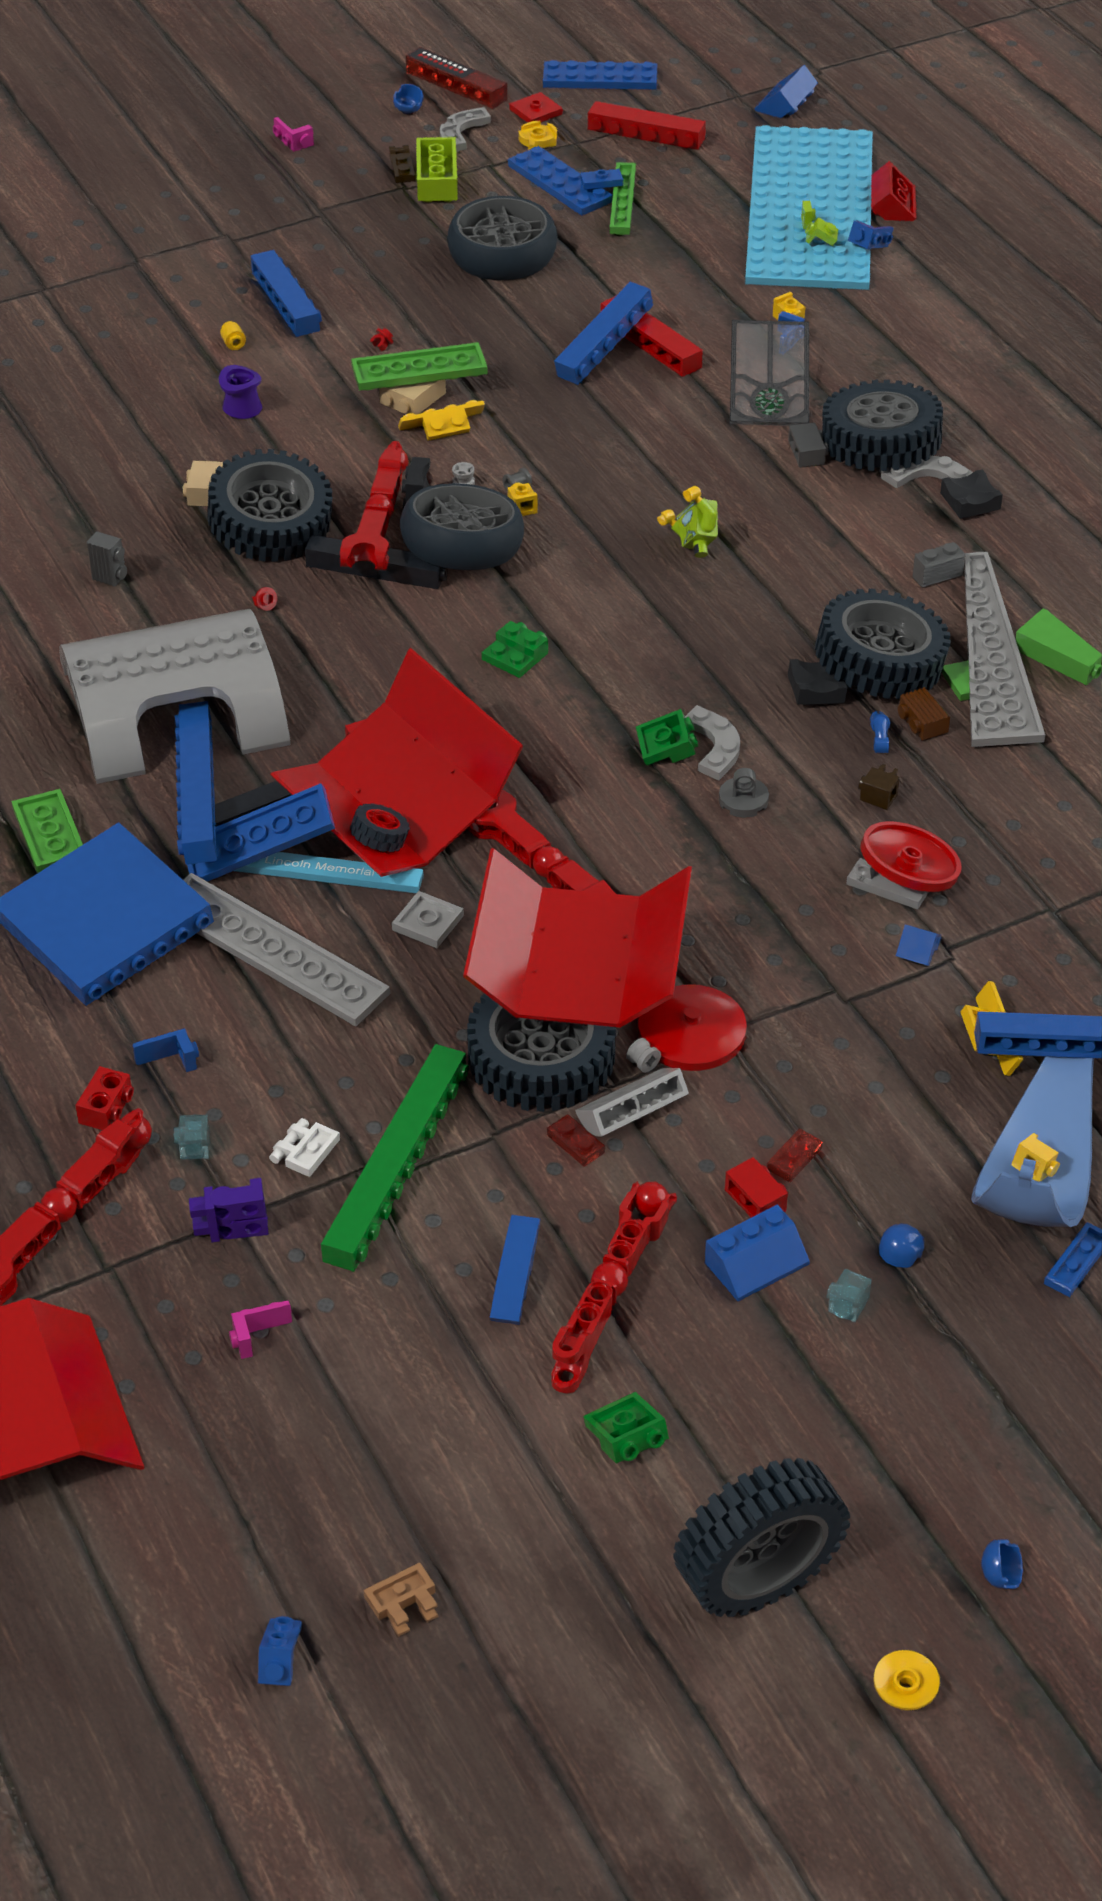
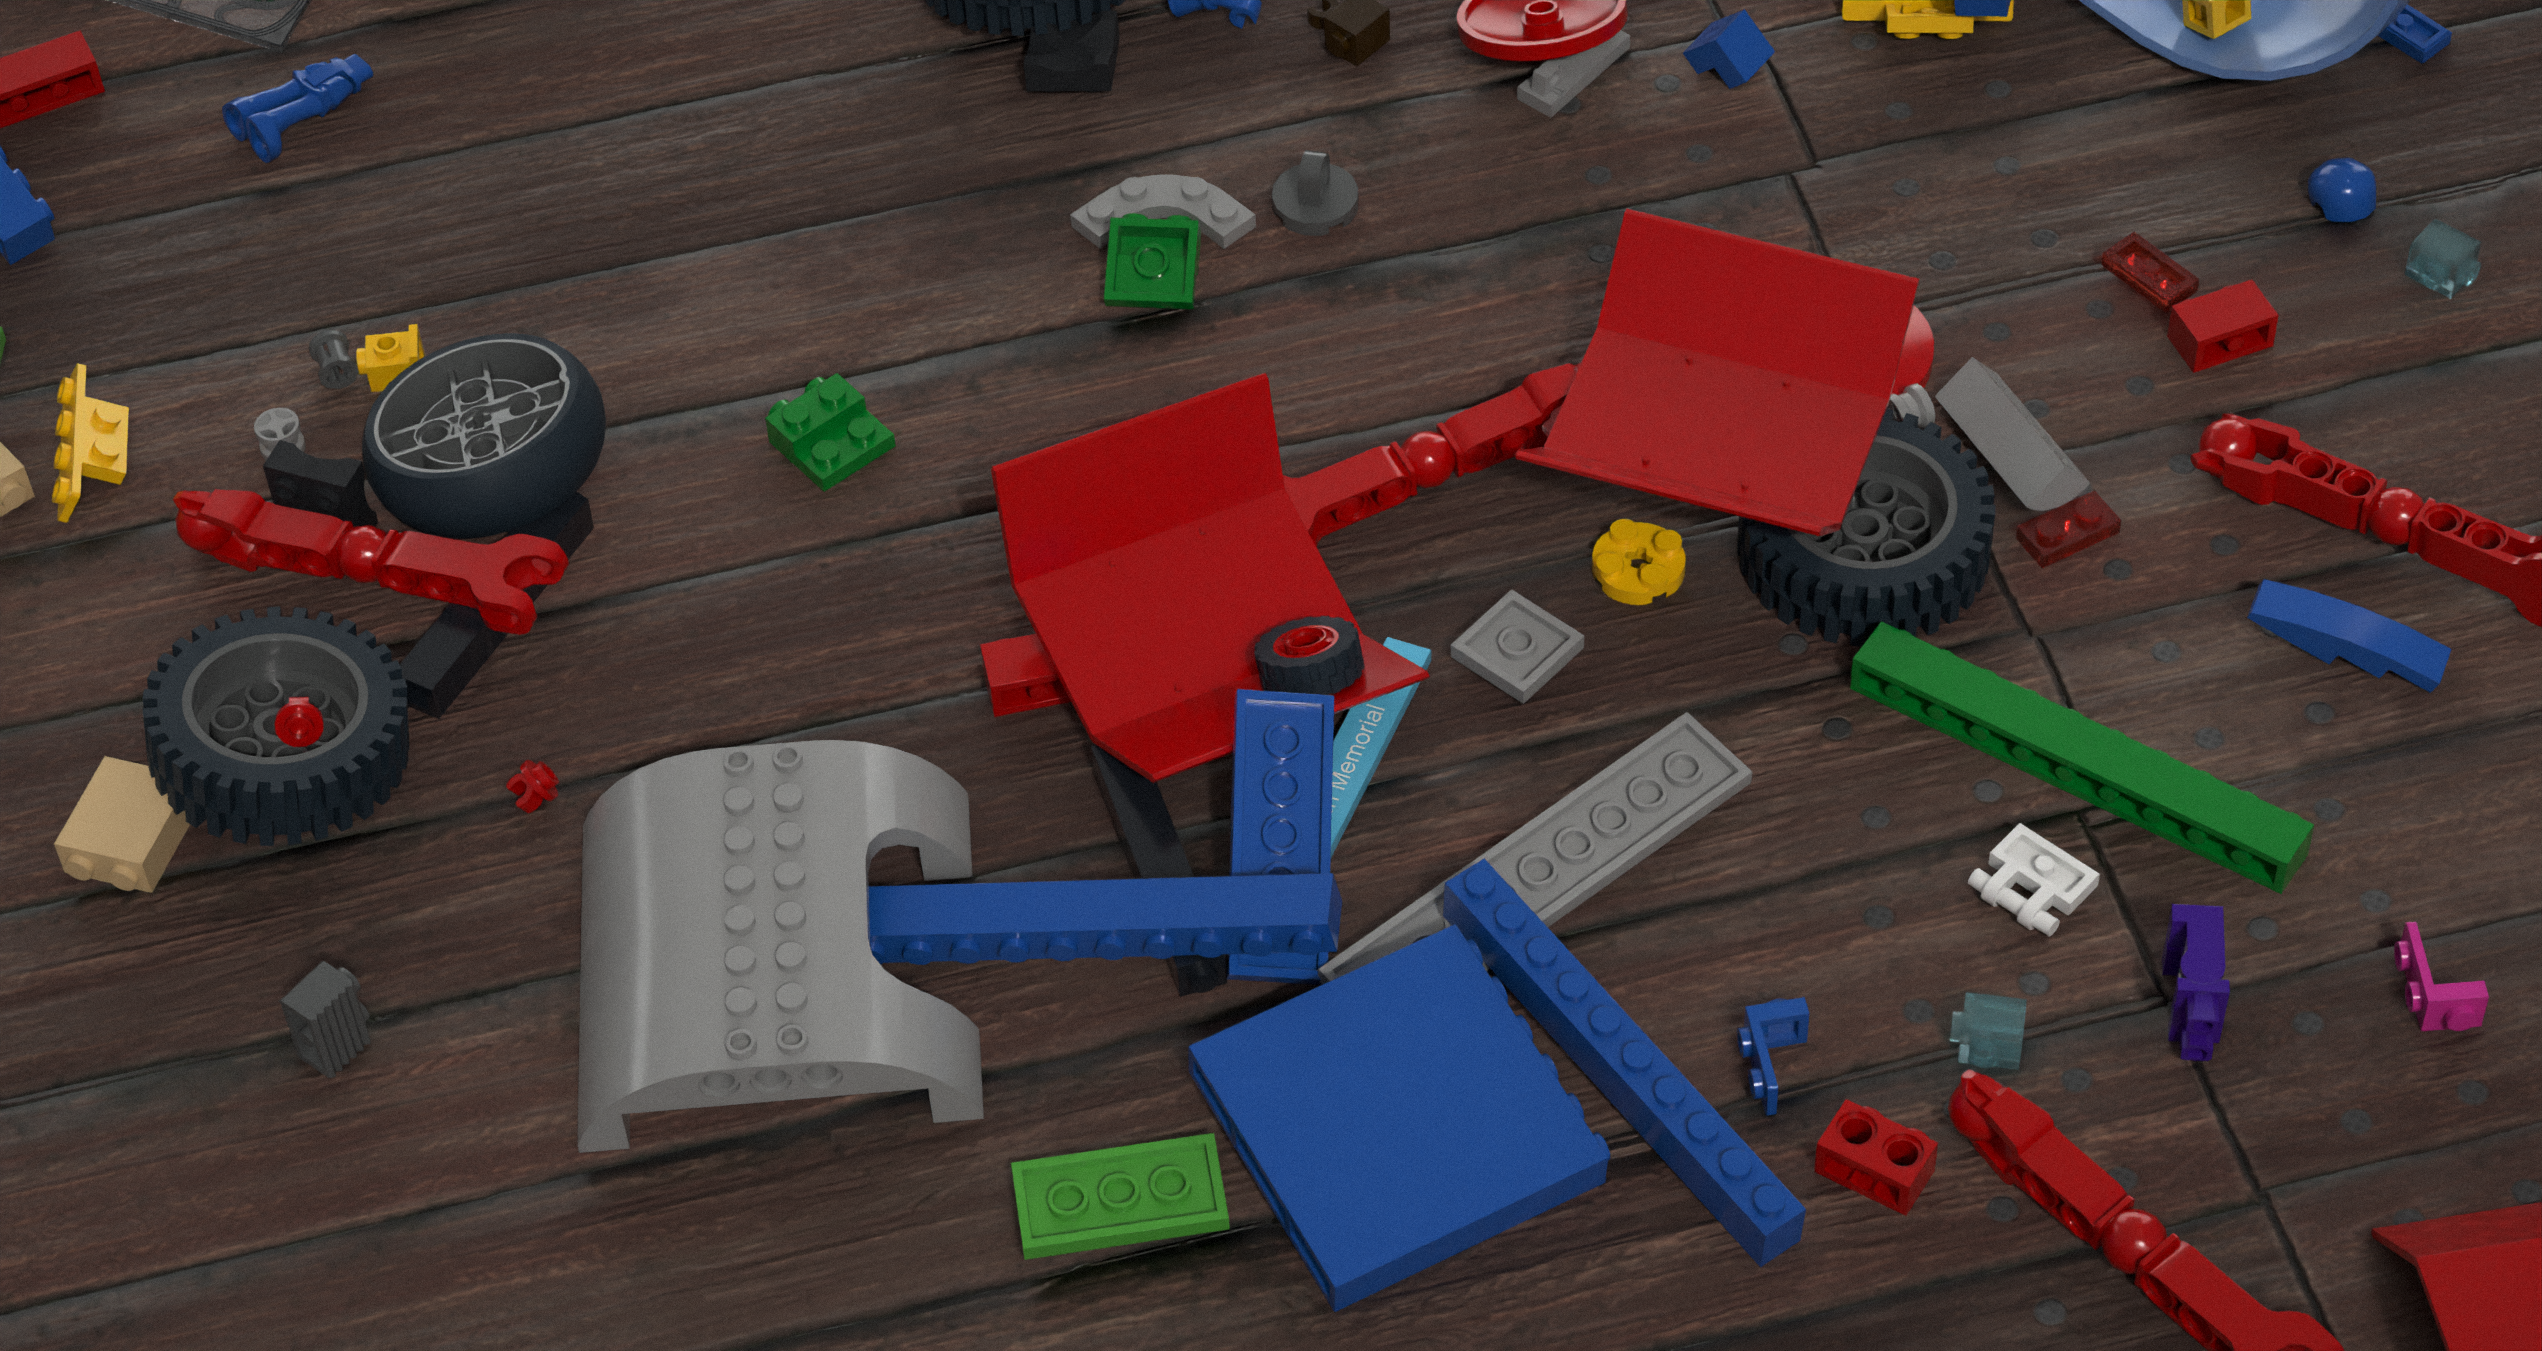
camera: 75 degrees left, 5 degrees up
(142, 987) = (1625, 1064): none -> blue brick
(263, 505) = (299, 722): none -> red plate
(694, 434) = (308, 94): none -> blue piece
(696, 523) = (606, 123): lime torso -> none
(756, 1253) = (2343, 349): blue slope -> none

